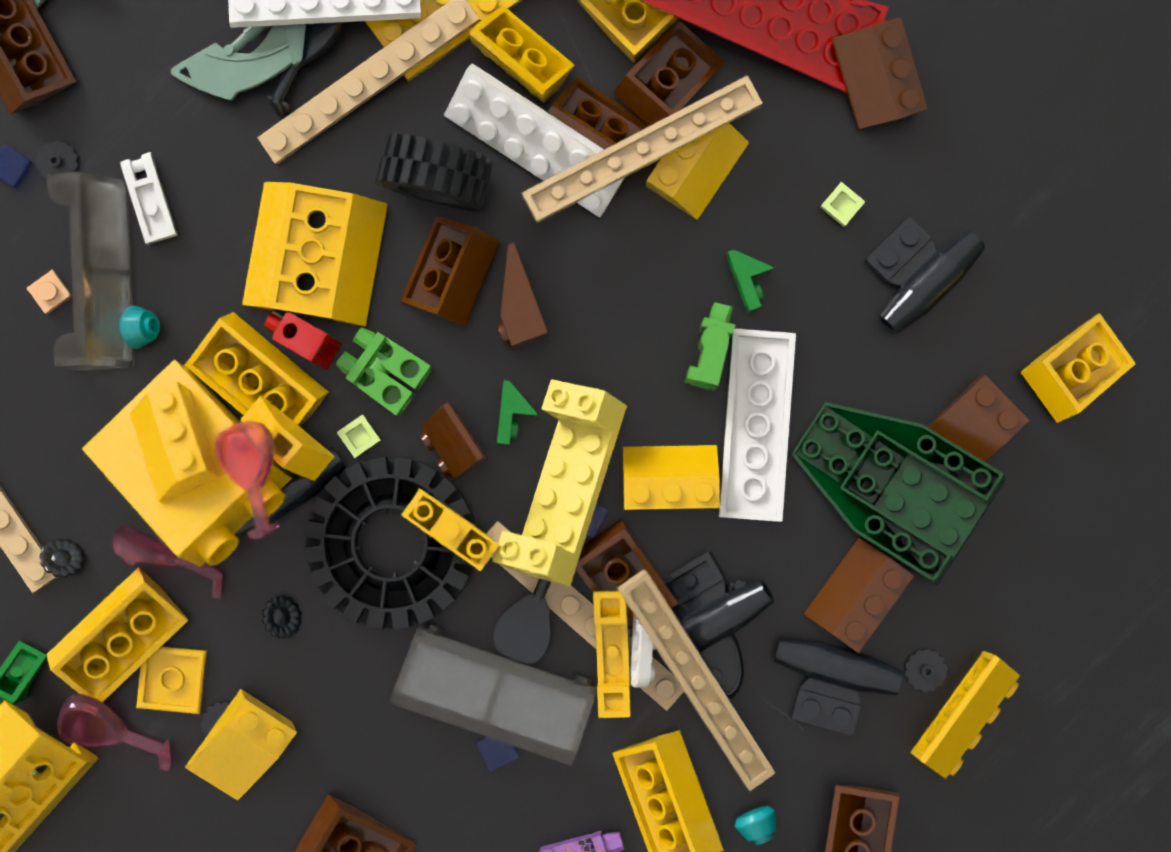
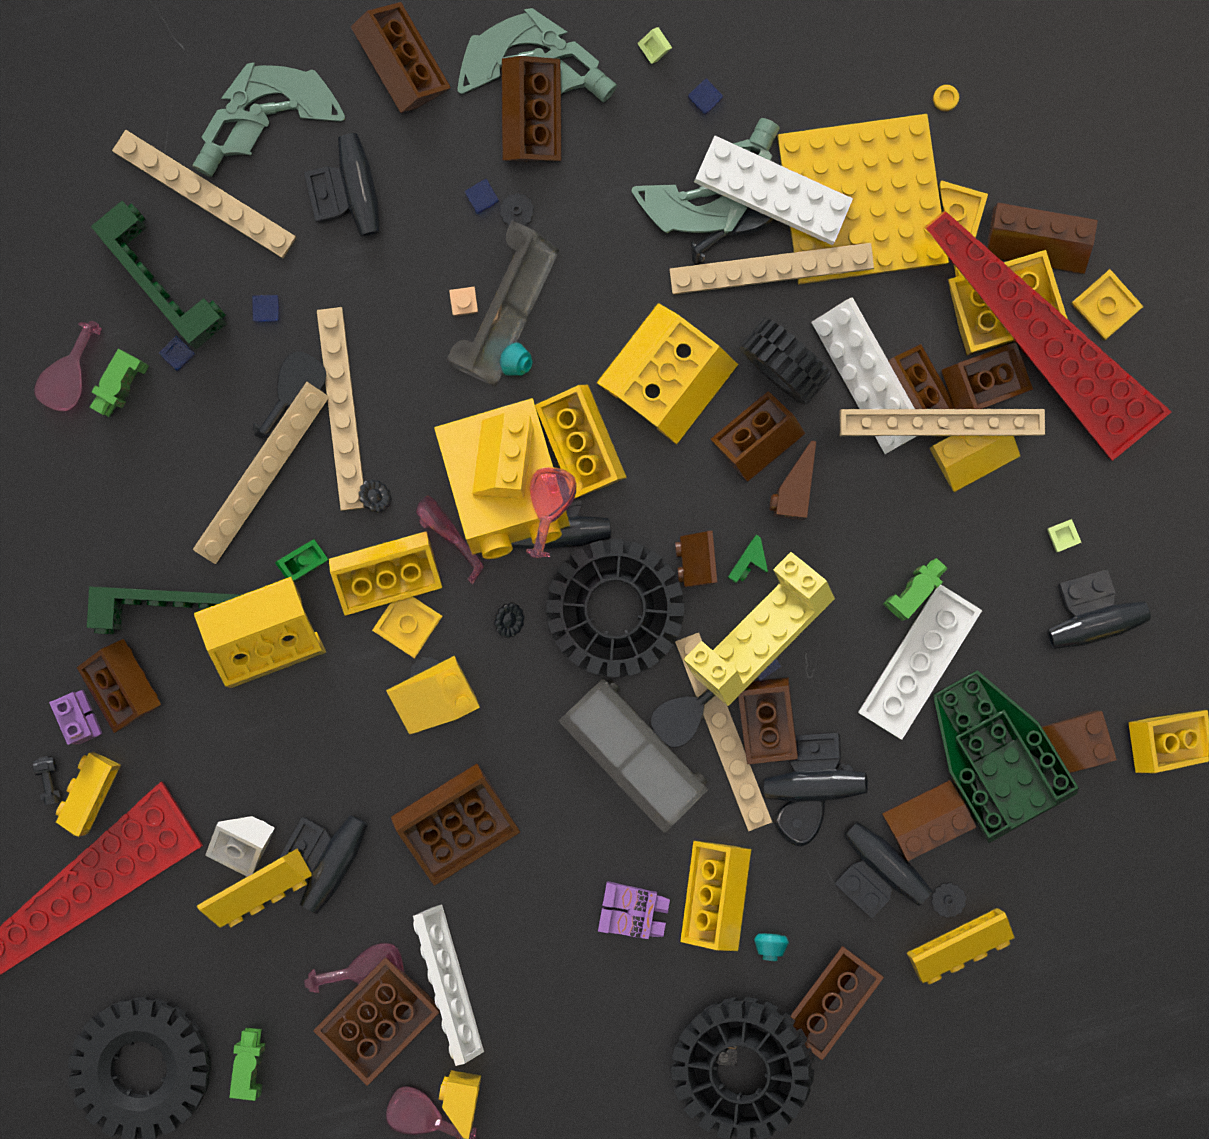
camera: 25 degrees right, 0 degrees up
(96, 725) = (337, 626): clear pink piece -> none
(149, 199) = (569, 272): white plate -> none
(293, 446) = (585, 507): yellow slope -> none
(303, 338) = (633, 436): red torso -> none
(359, 436) = (631, 520): yellowish green plate -> none
(375, 365) = (672, 475): bright green hips -> none
(450, 529) = (665, 621): yellow slope -> none
(496, 752) = (612, 796): clear blue tile -> none
(521, 53) = (891, 308): yellow slope -> none
(612, 654) = (732, 769): yellow slope -> none
(641, 665) = (759, 773): white plate -> none
(671, 477) = (838, 666): yellow slope -> none
(696, 679) = (783, 819): tan plate -> none
(743, 270) = (968, 546): green slope -> none
(879, 73) = (1139, 455): reddish brown slope -> none

